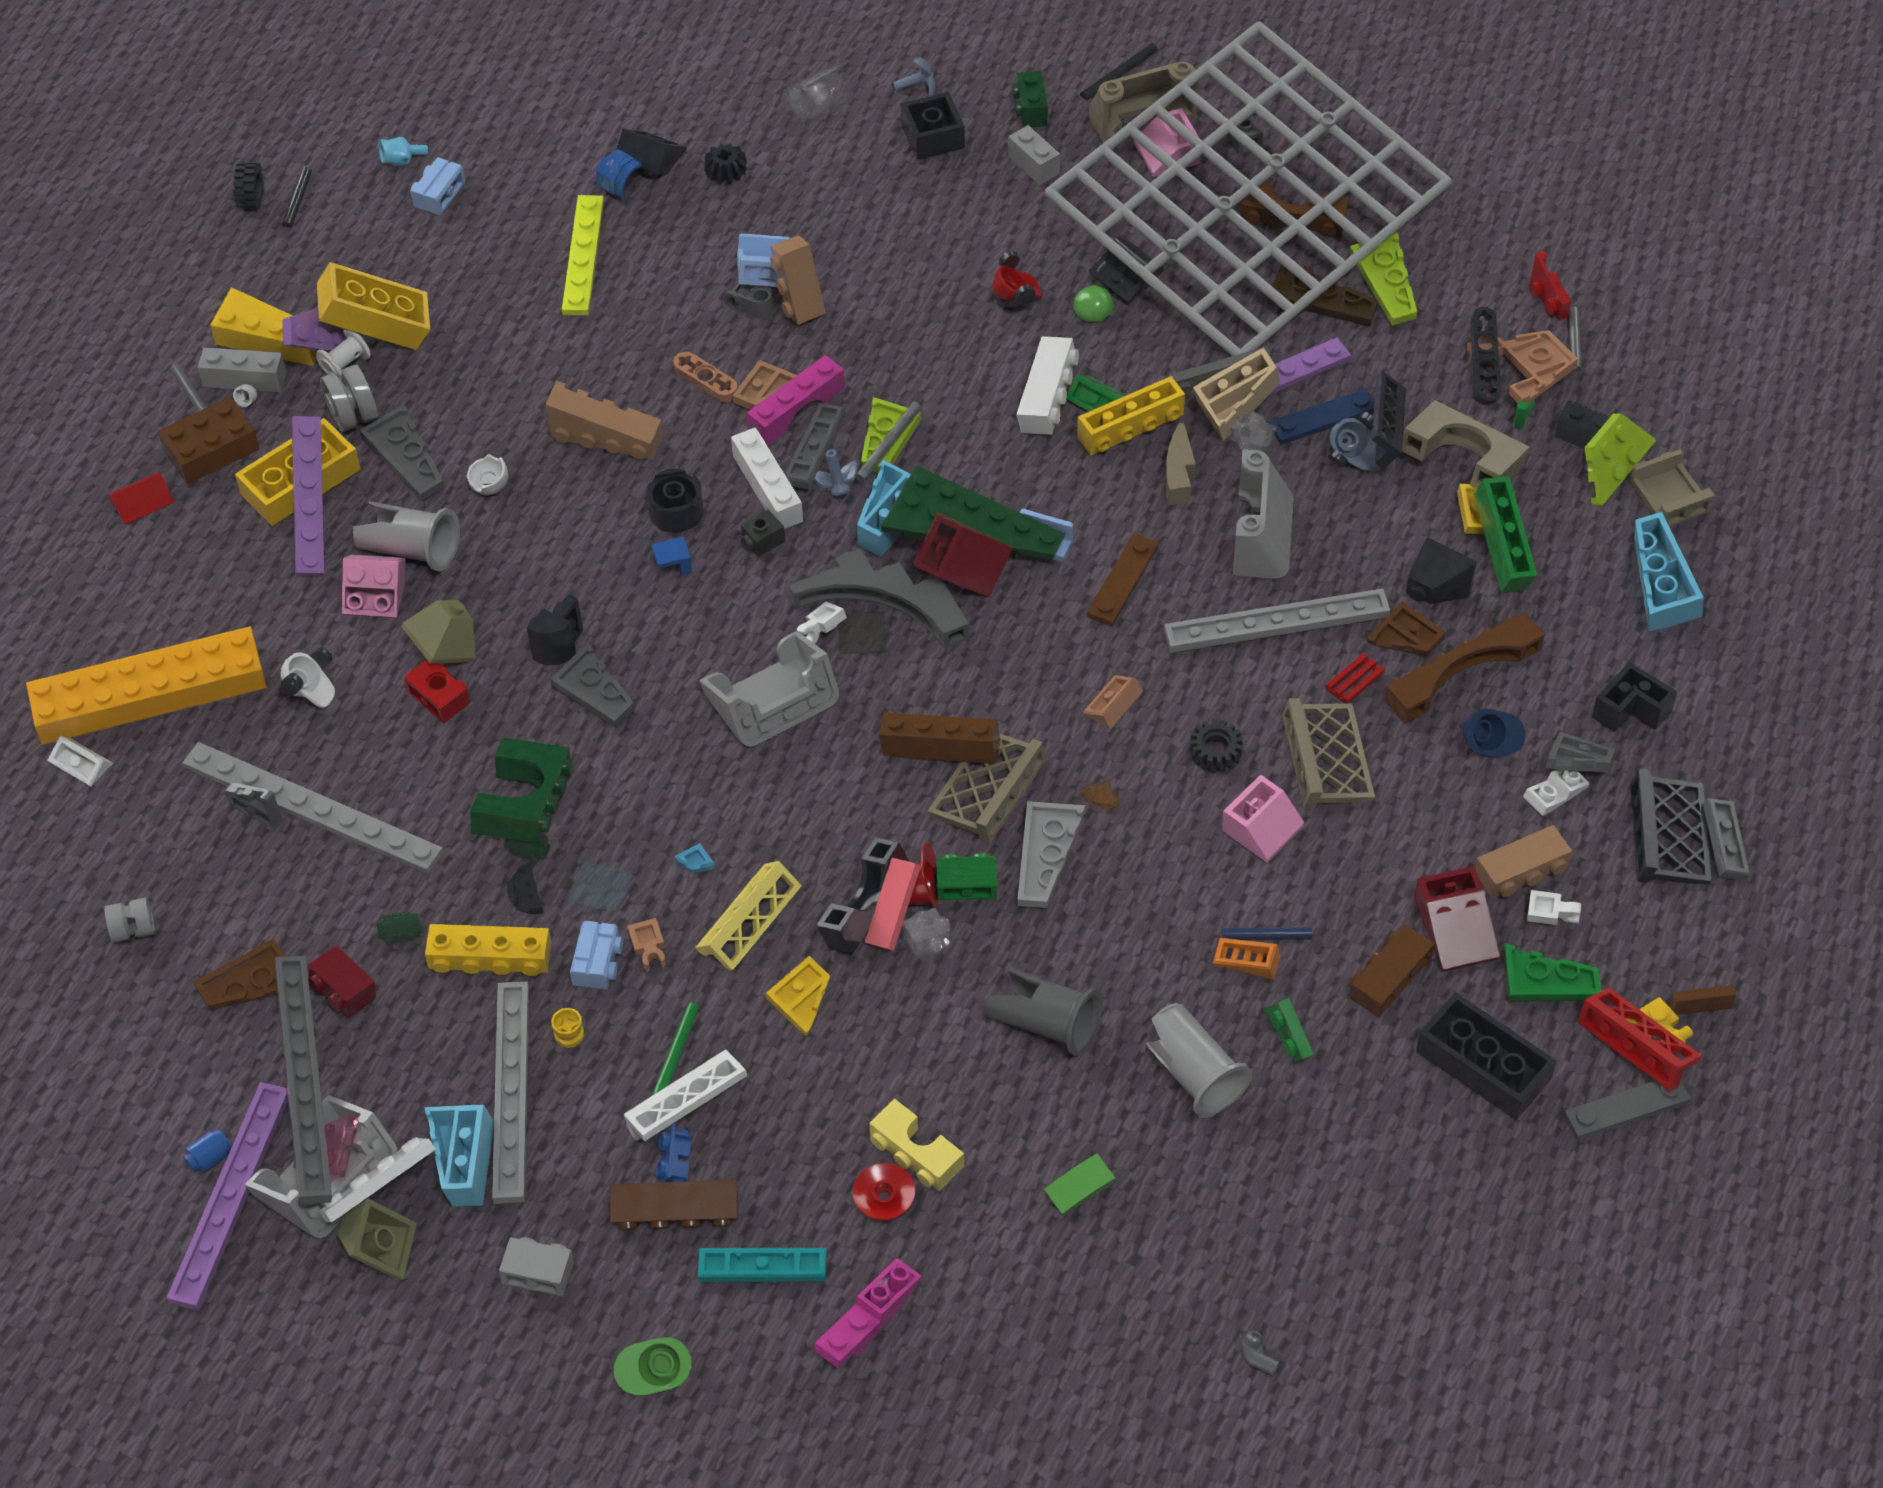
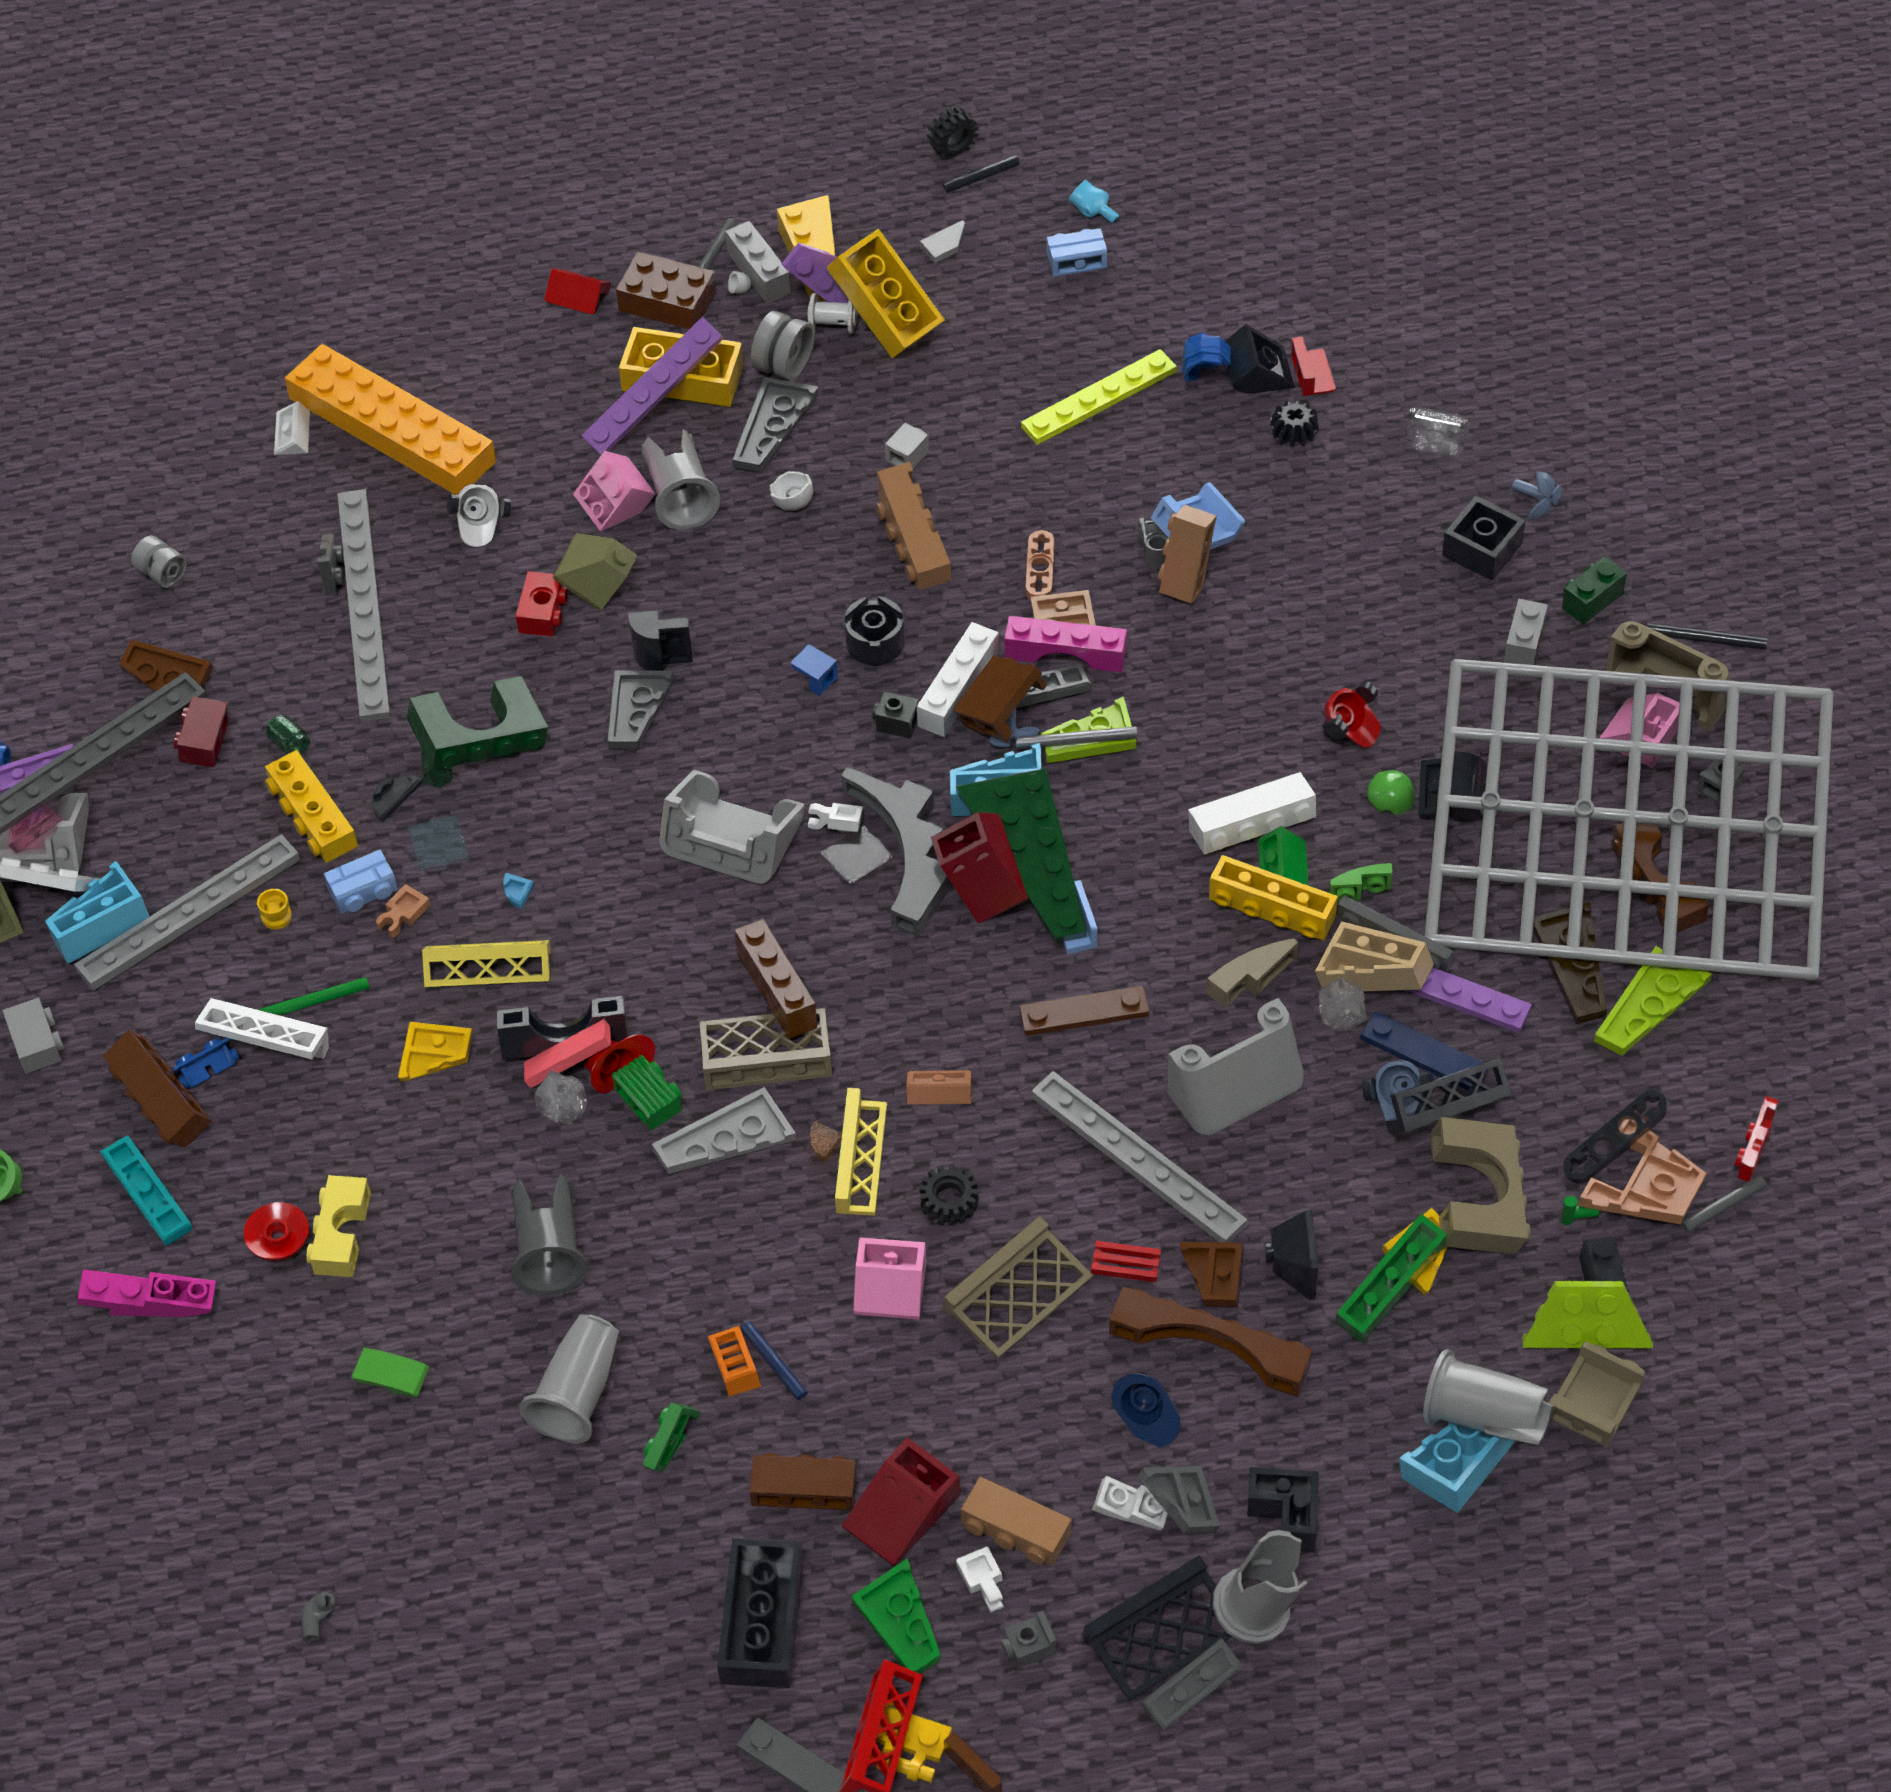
camera: 55 degrees right, 0 degrees up
(340, 252) = (943, 242): none -> tile
(518, 386) = (906, 446): none -> light grey brick
(681, 128) = (1311, 369): none -> panel
(815, 460) = (996, 696): none -> reddish brown panel
(1130, 783) = (848, 1154): none -> light yellow fence
(1159, 360) = (1371, 878): none -> bright green slope
(1625, 909) = (1027, 1652): none -> dark grey brick
(1657, 532) = (1485, 1401): none -> light grey piece
(1699, 747) = (1264, 1608): none -> light grey piece

